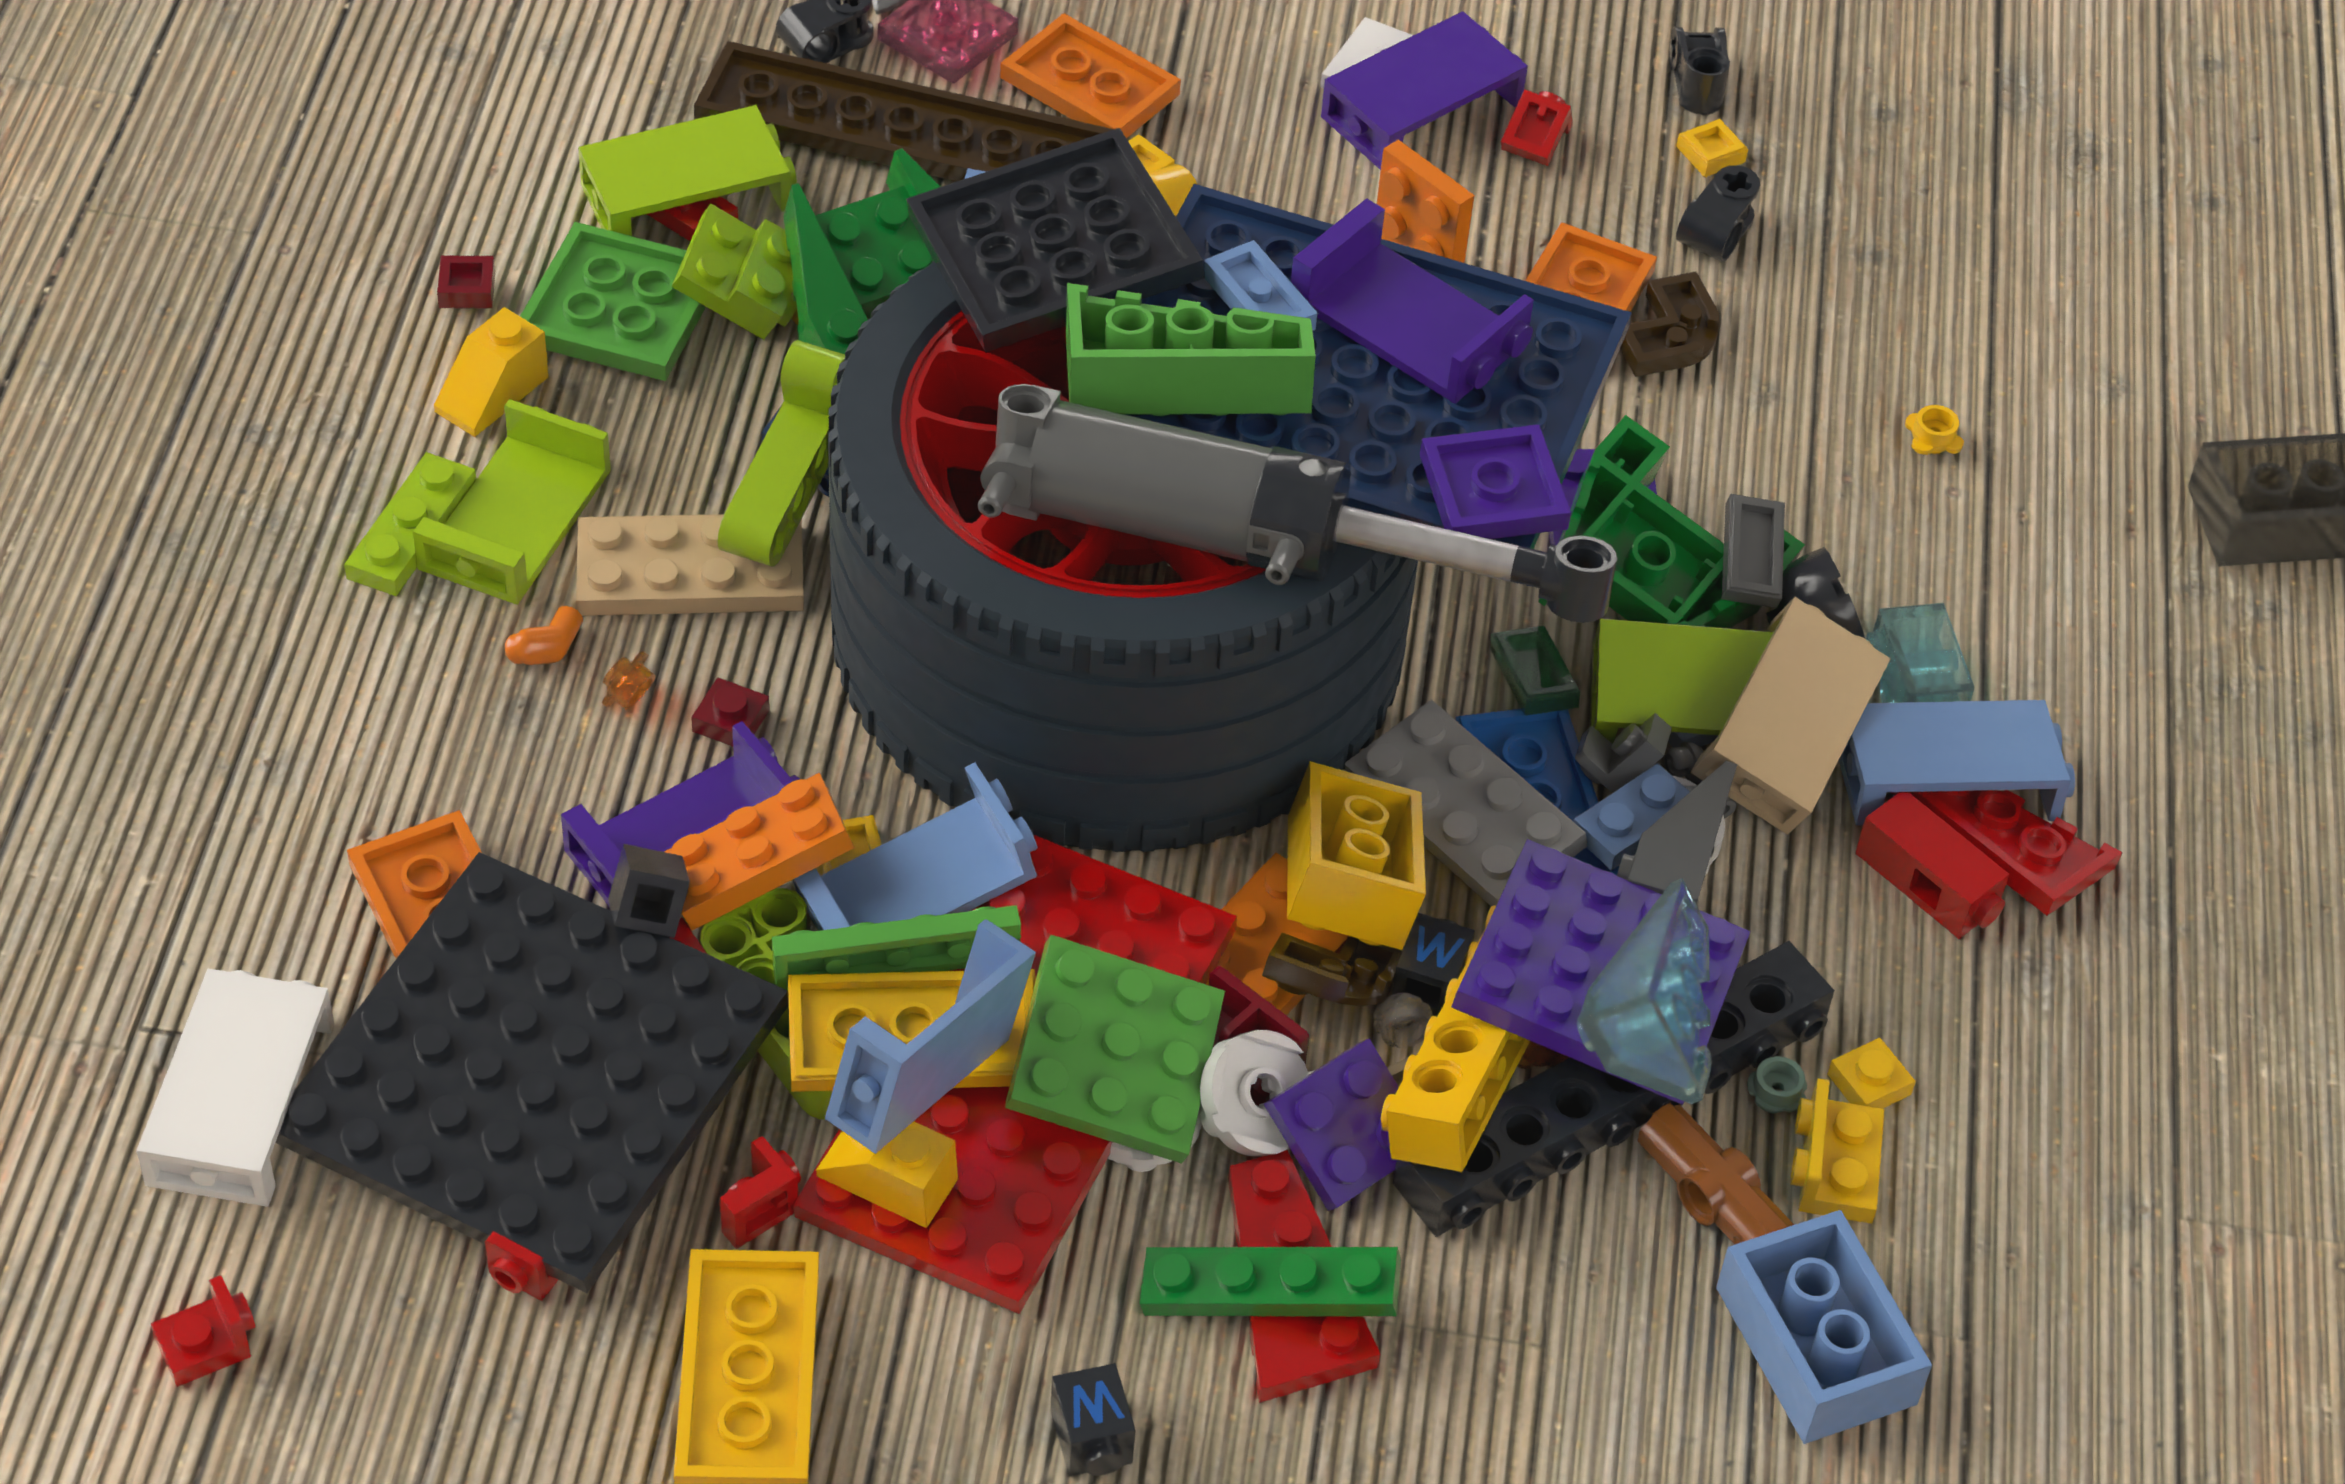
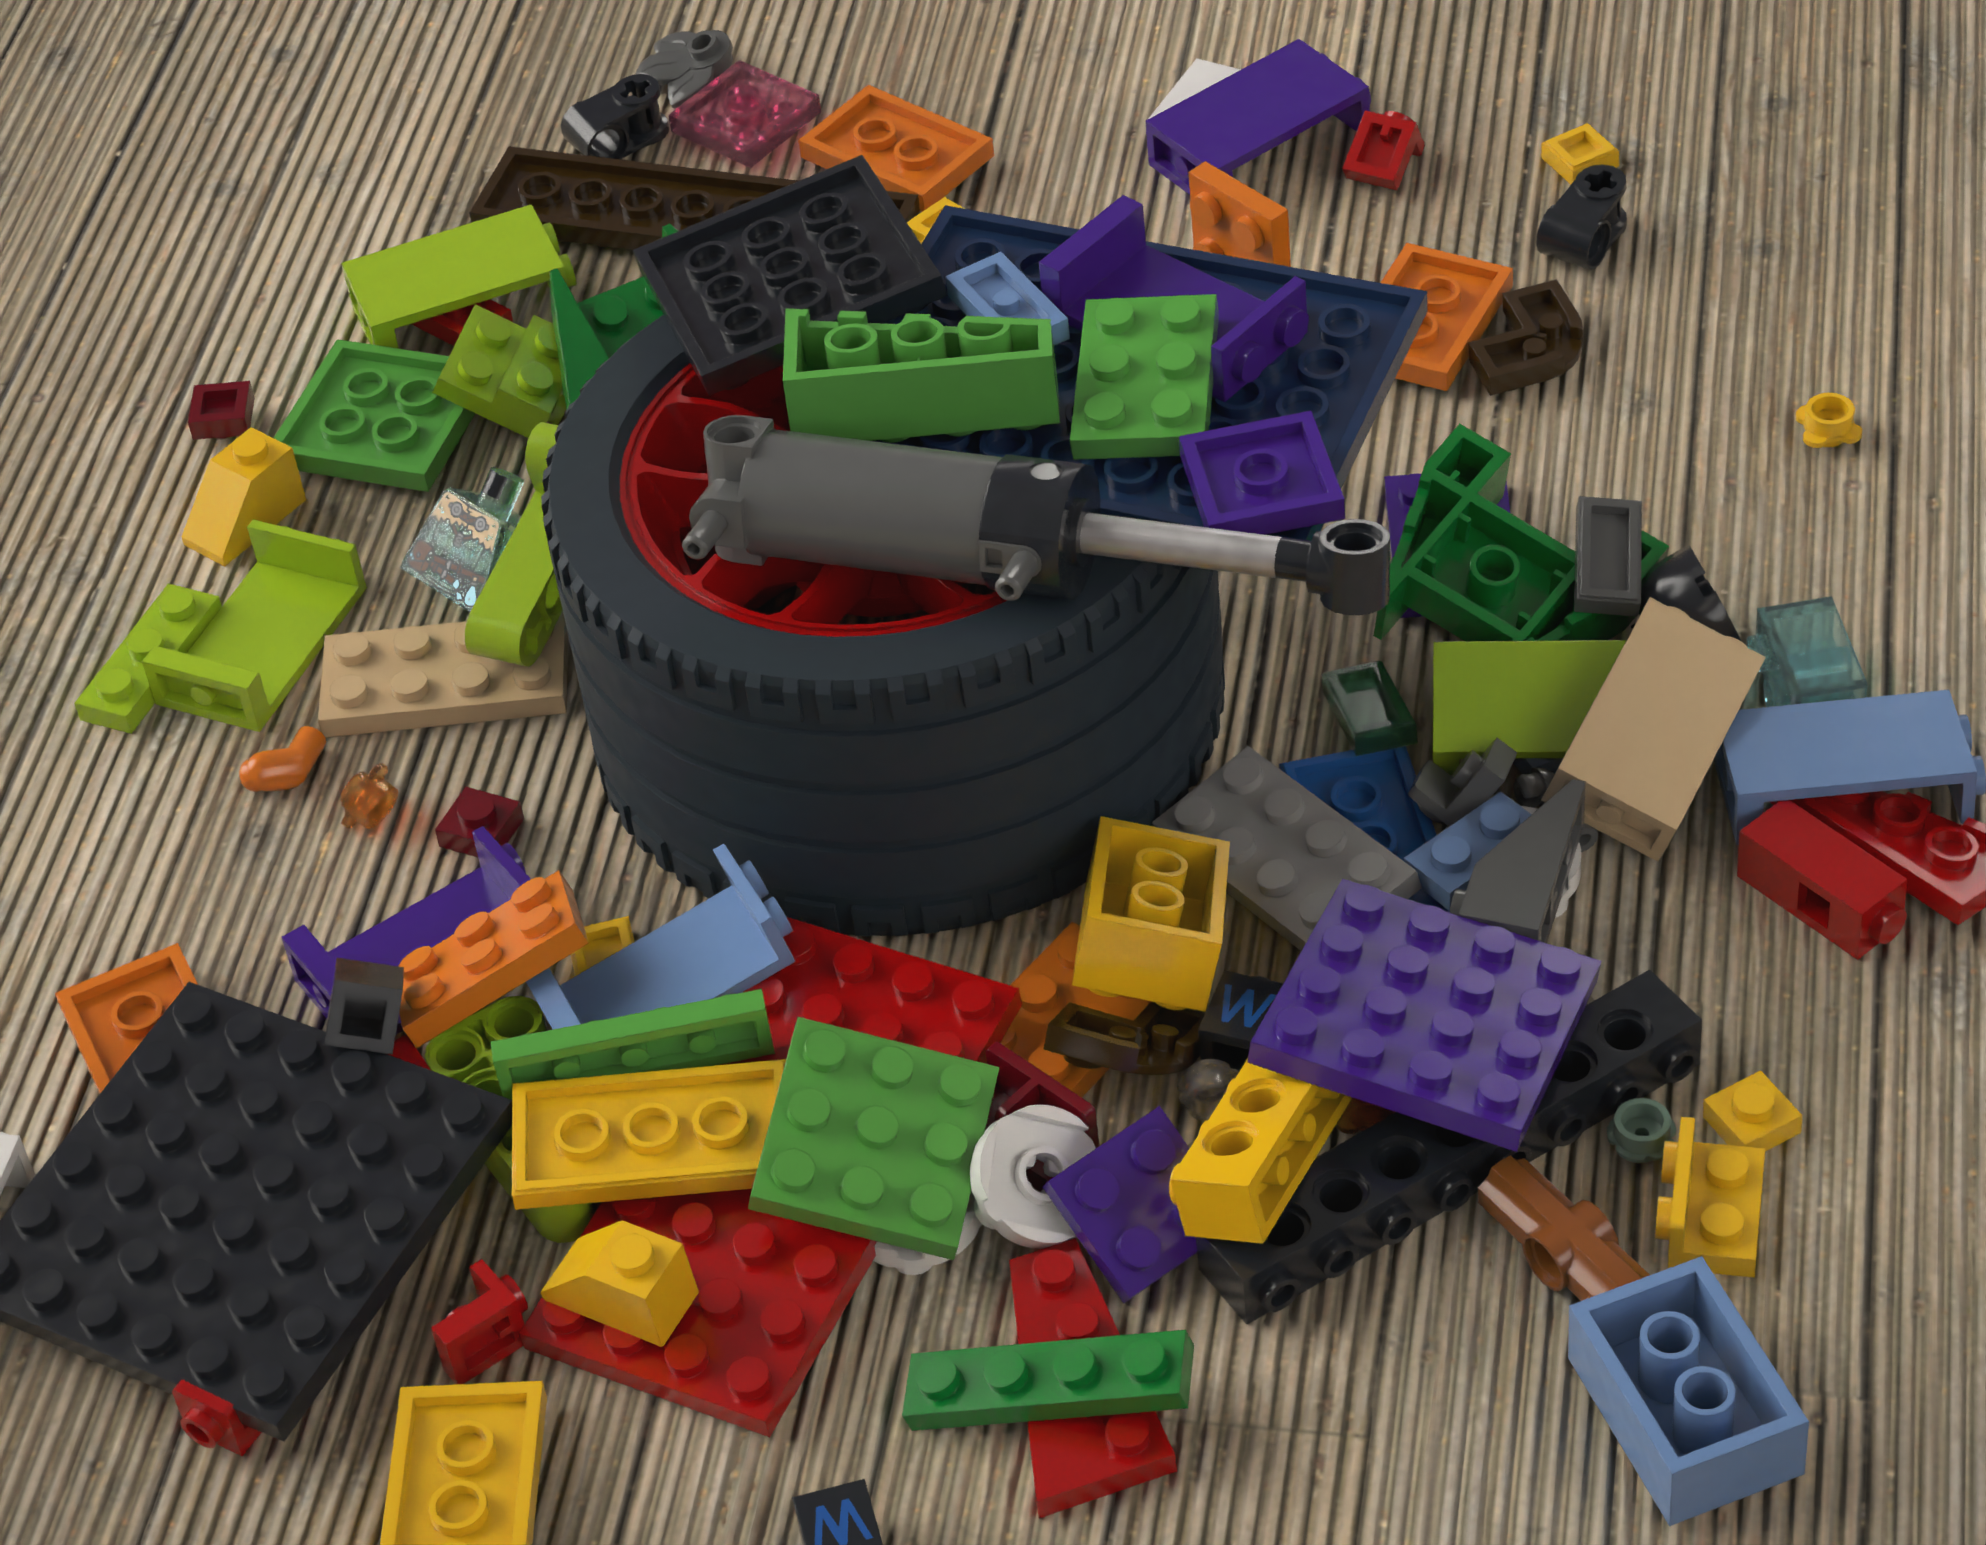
camera: 10 degrees right, 5 degrees down
(715, 440) = (465, 538): none -> torso
(892, 1083) = (609, 1181): medium blue panel -> none
(1386, 374) = (1143, 375): none -> bright green plate
(1650, 1002) = (1471, 1037): clear light blue wedge -> none
(1700, 68) = (1565, 75): black piece -> none

